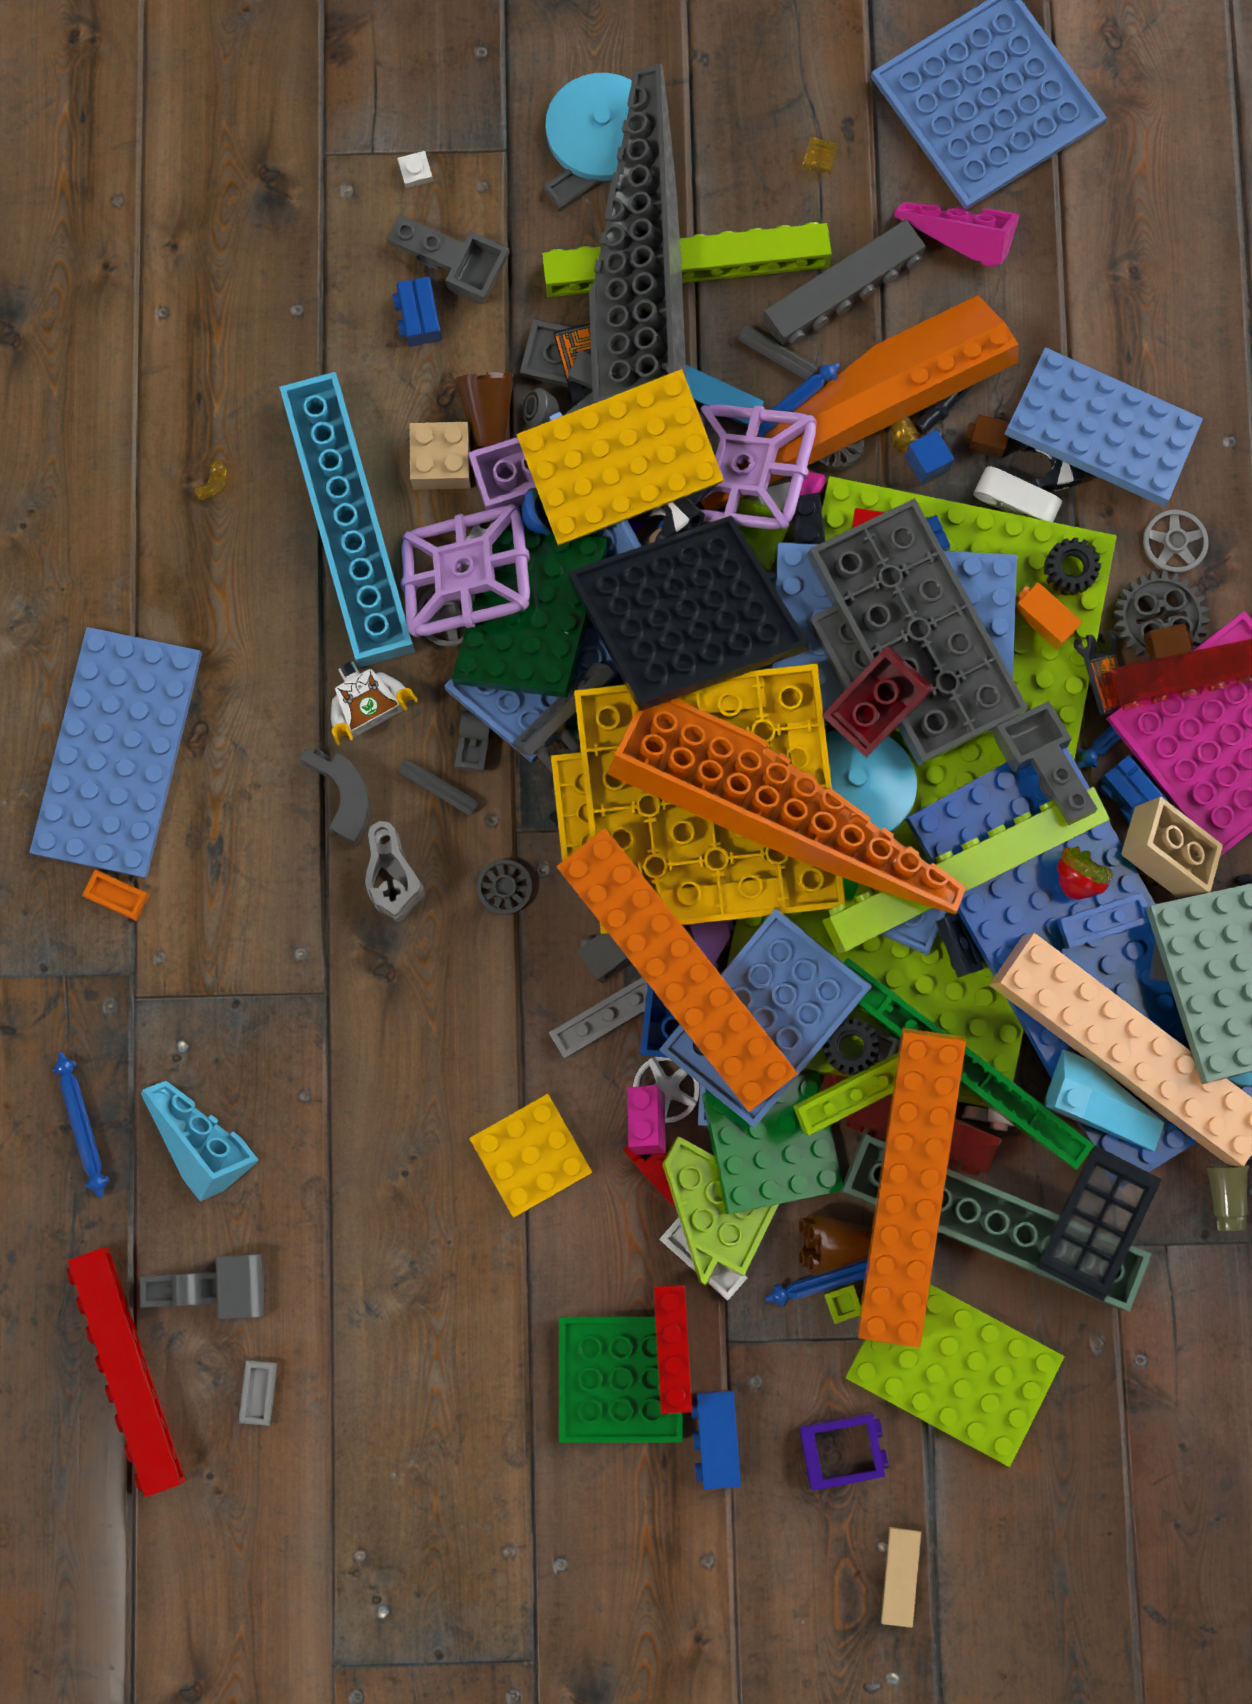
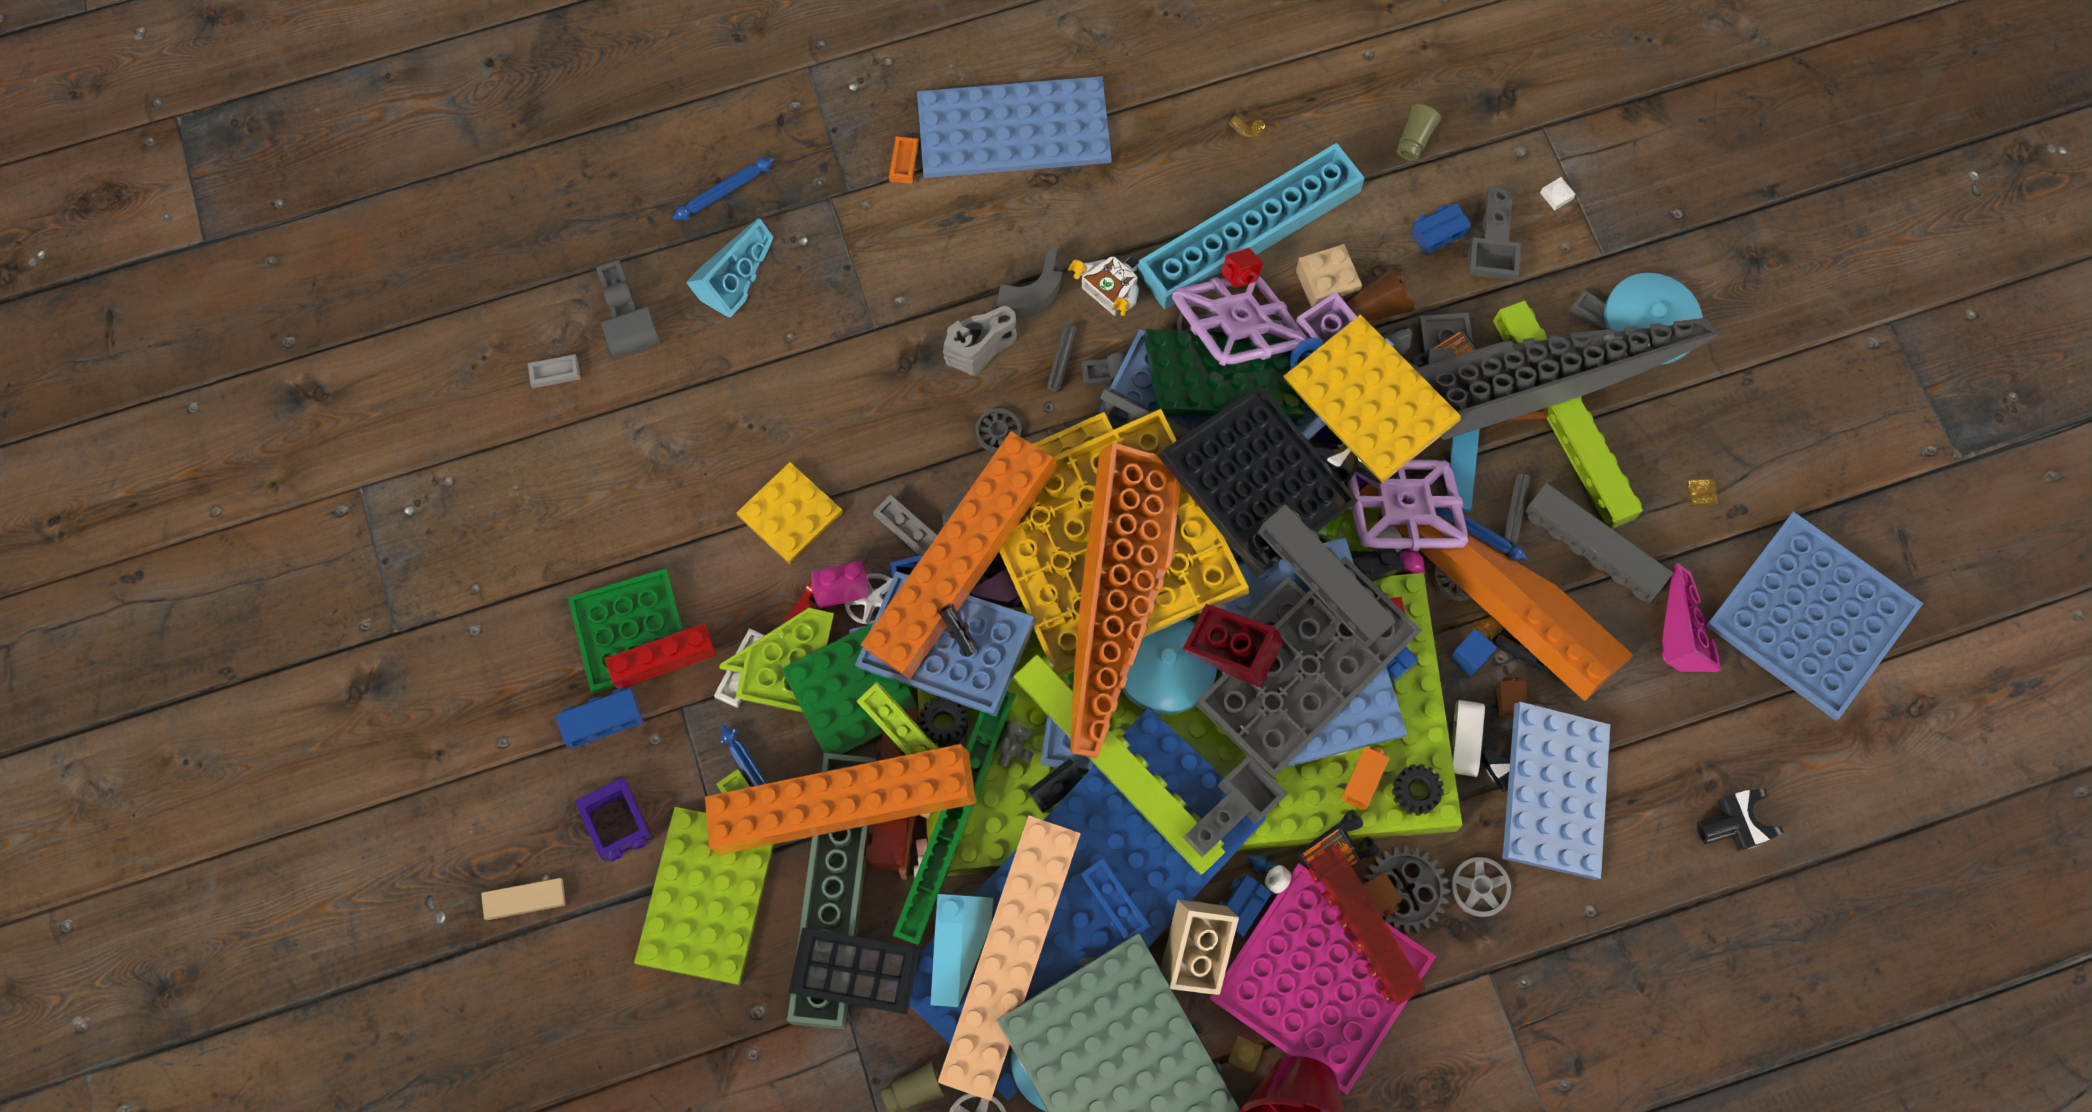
camera: 75 degrees right, 10 degrees down
(126, 1372) = (546, 273): red brick -> none
(288, 293) = (1418, 129): none -> olive plant
(402, 546) = (1242, 267): none -> red brick
(768, 996) = (958, 630): none -> black pin
(832, 575) = (1326, 576): none -> dark grey brick
(832, 1243) = (779, 760): reddish brown cone -> none
(899, 979) = (1011, 744): none -> dark grey piece
(1080, 875) = (1147, 866): hair -> none
(1118, 744) = (1278, 879): none -> white tile
(1184, 259) = (1738, 822): none -> black connector

